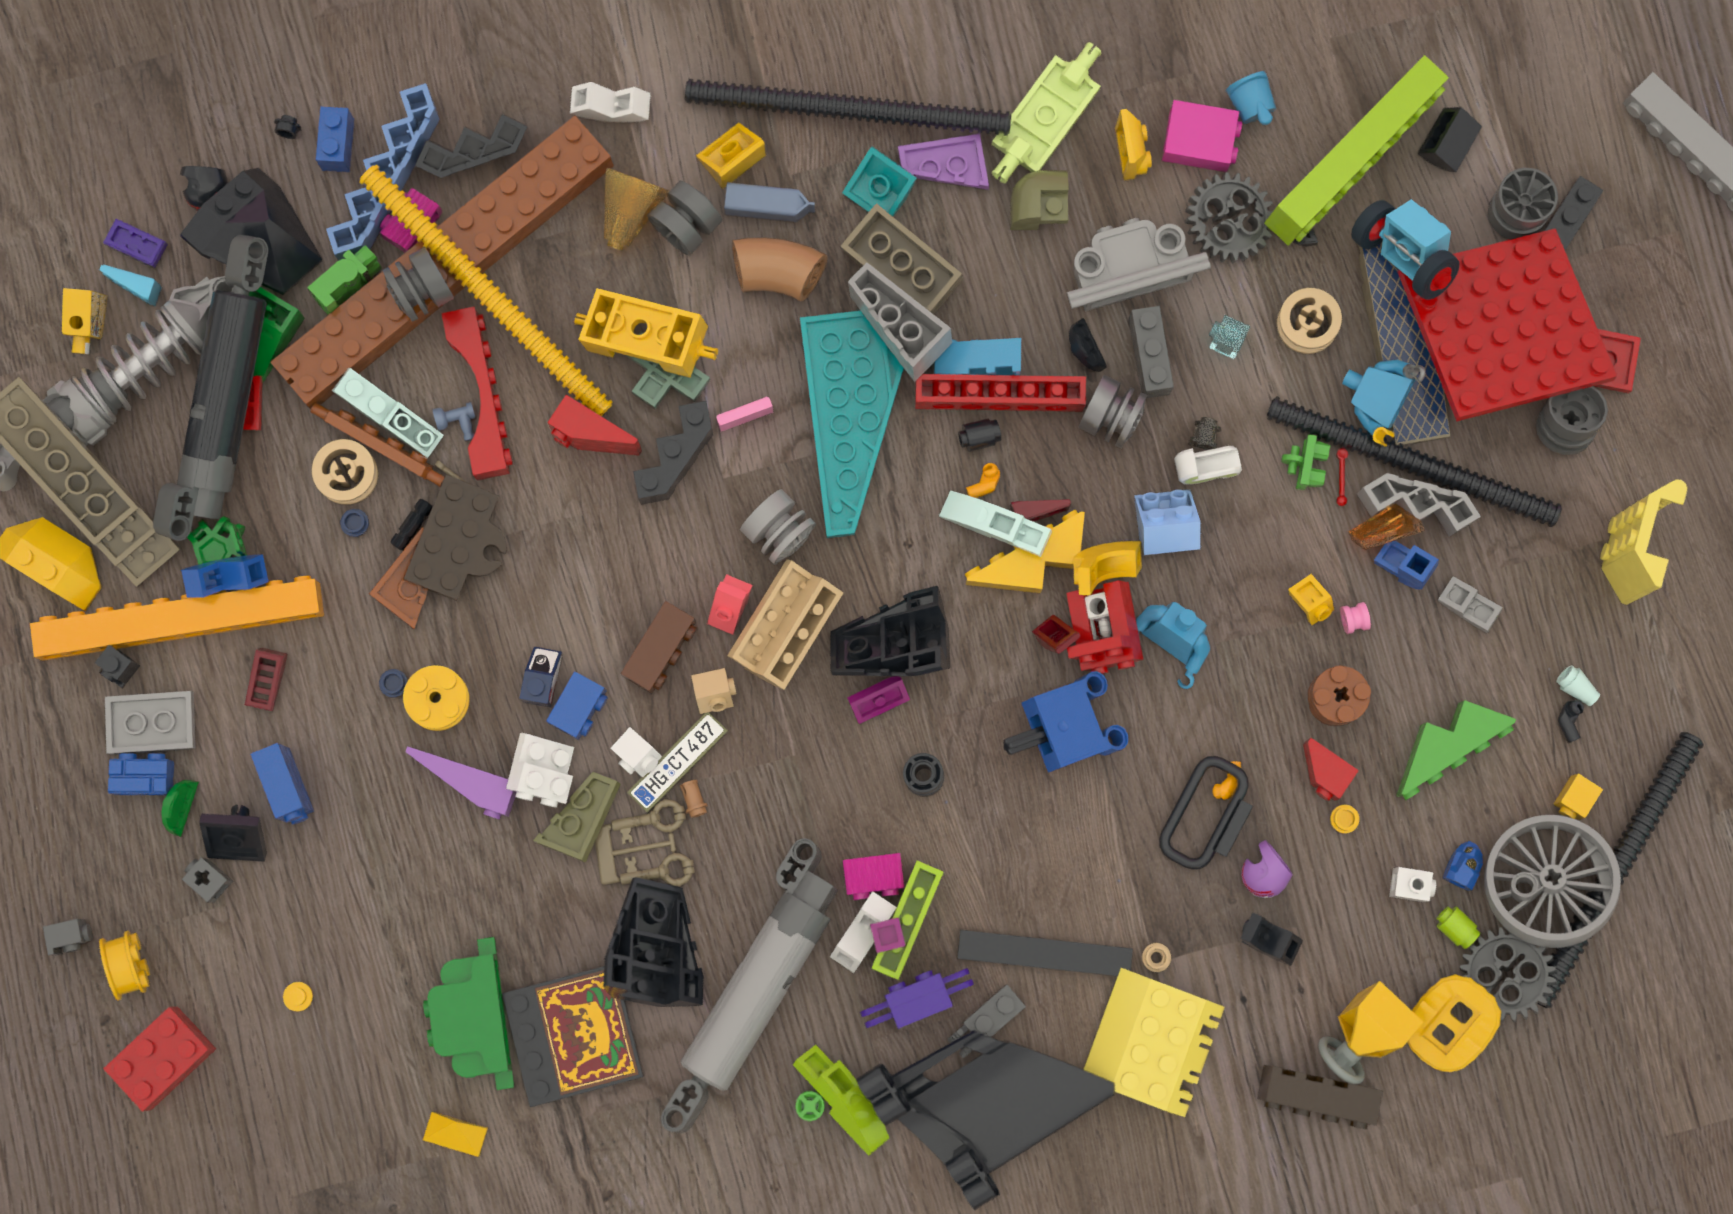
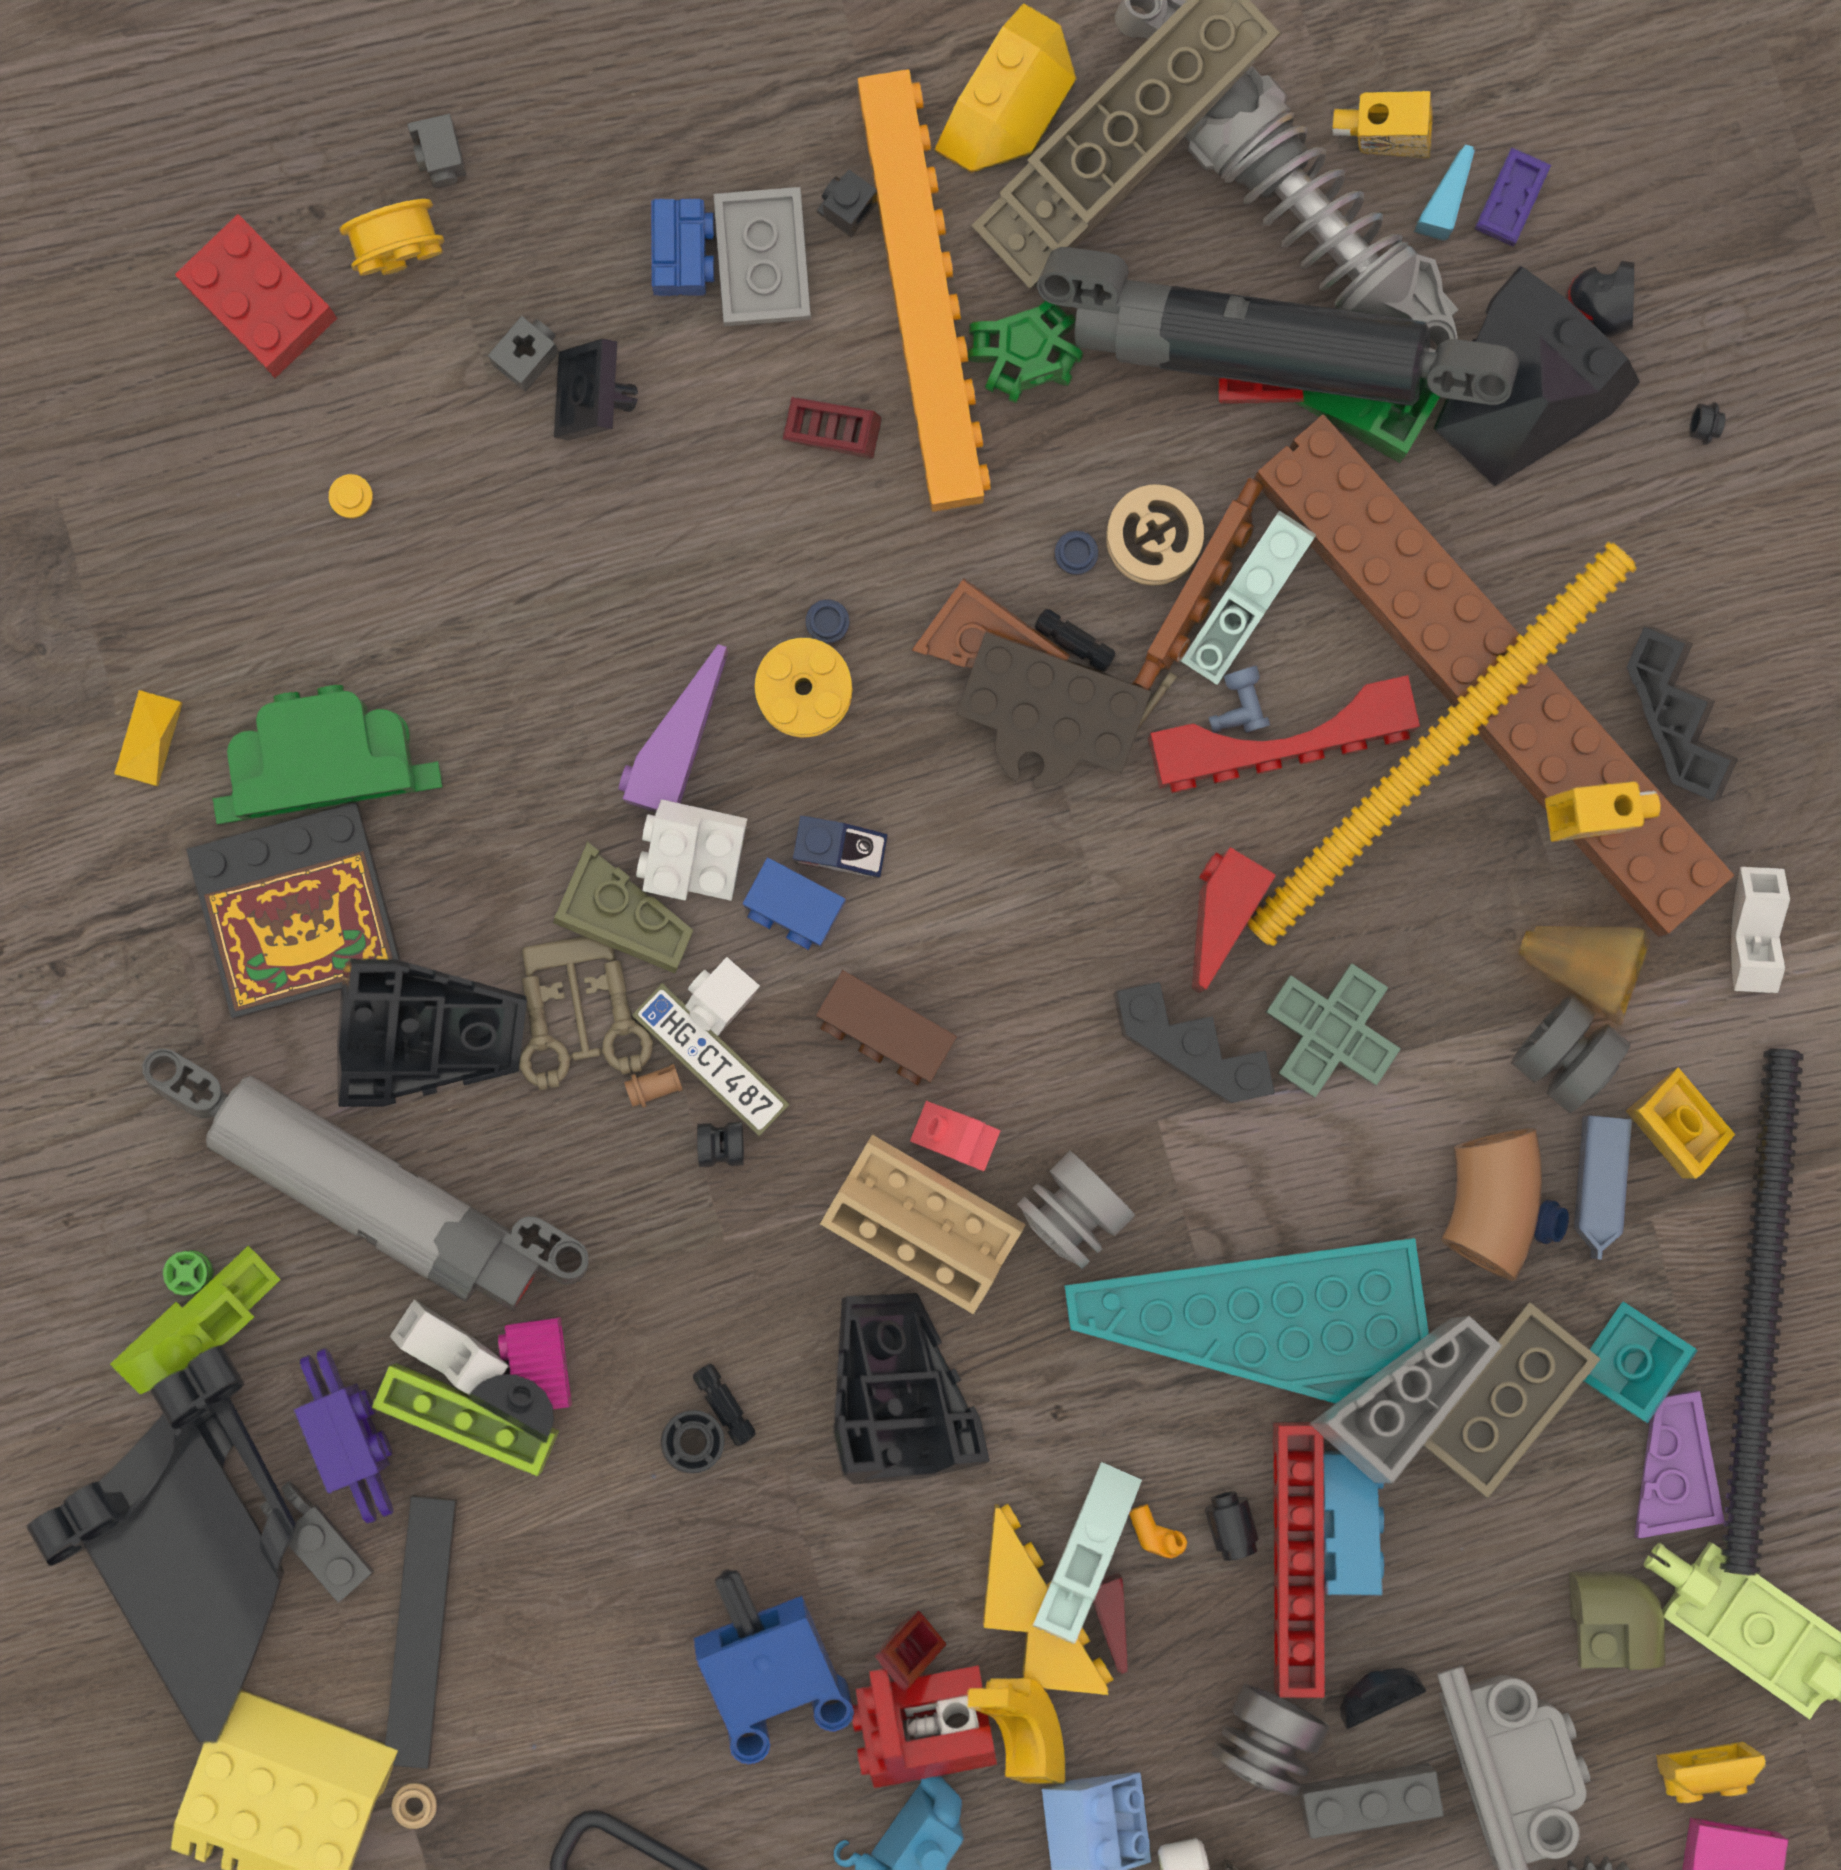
camera: 85 degrees right, 5 degrees up
(177, 806) = (636, 304): green plate -> none
(224, 574) = (989, 364): blue brick -> none
(282, 783) = (666, 460): blue brick -> none
(335, 139) = (1688, 498): blue brick -> none
(344, 279) = (1458, 524): bright green hips -> none
(396, 234) = (1533, 602): dark pink brick -> none
(405, 144) = (1682, 608): medium blue brick -> none
(417, 284) = (1445, 639): dark grey wheel -> none
(531, 194) = (1599, 810): none -> yellow torso
(671, 337) = (1372, 1037): yellow brick -> none
(713, 690) = (818, 1114): tan brick -> none
(732, 755) = (720, 1144): none -> black wheel
(744, 413) = (1258, 1153): bright pink tile -> none
(791, 233) = (1551, 1222): none -> dark blue plate
(878, 698) = (808, 1368): magenta plate -> none
(887, 935) = (436, 1391): magenta plate -> none
(896, 883) = (516, 1402): none -> black plate
(900, 755) = (724, 1404): none -> black axle

